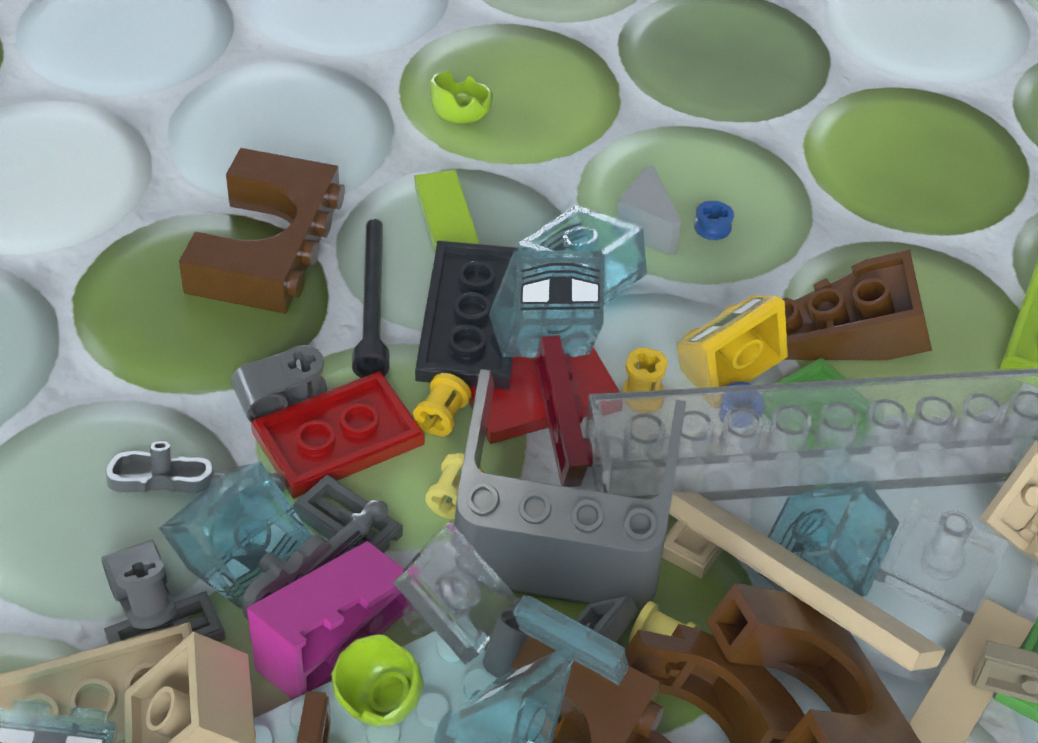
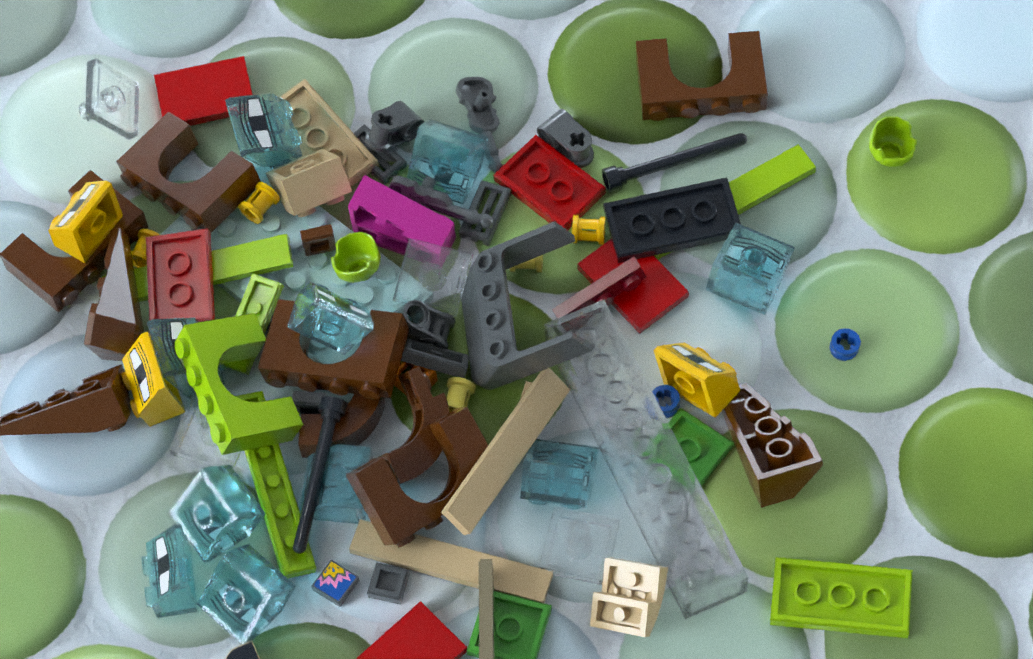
camera: 80 degrees right, 15 degrees up
(550, 297) = (668, 255): clear light blue slope -> none
(562, 632) = (383, 327): clear light blue tile -> none
(649, 207) = (826, 296): light grey slope -> none
(650, 372) = (656, 334): yellow bush -> none

